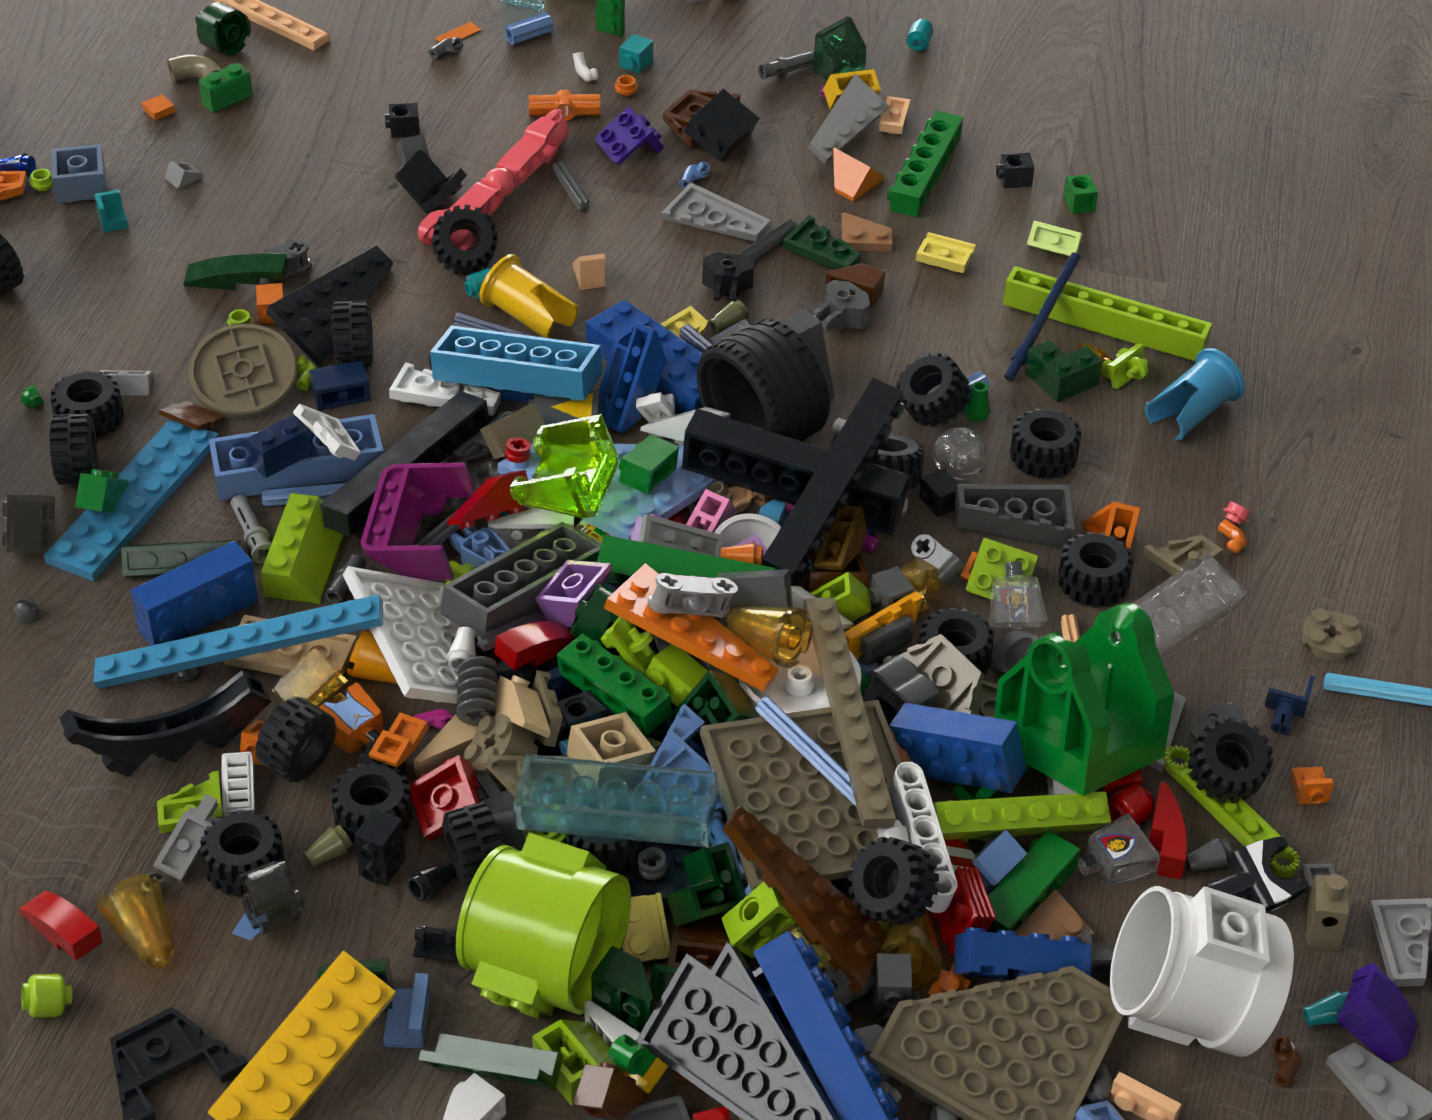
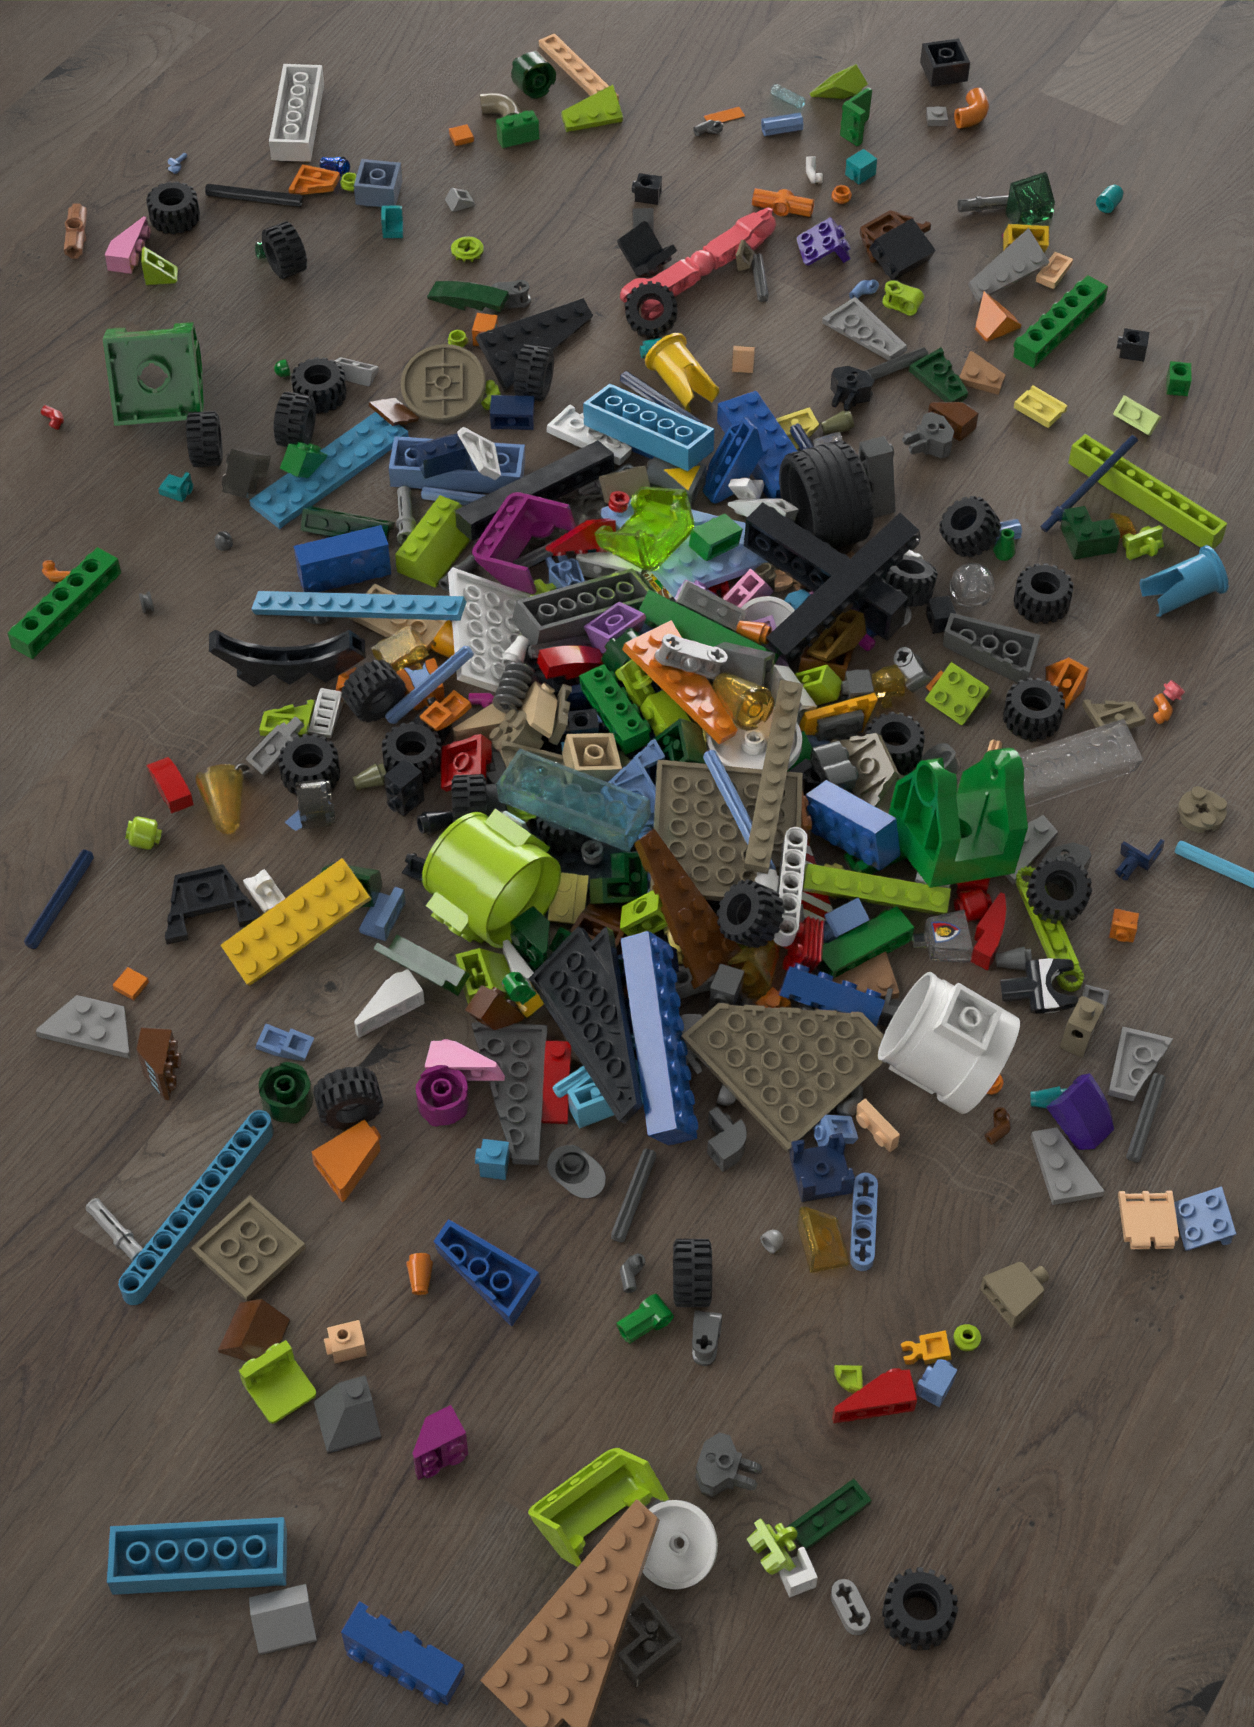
camera: 20 degrees right, 10 degrees up
(203, 221) = (461, 245): none -> lime gear
(242, 1026) = (264, 890): none -> white hips
(307, 54) = (593, 111): none -> lime wing
(368, 712) = (429, 684): none -> medium blue axle
(546, 166) = (744, 256): none -> dark tan slope
(744, 174) = (903, 299): none -> lime piece
(1016, 601) = (956, 719): clear torso -> none

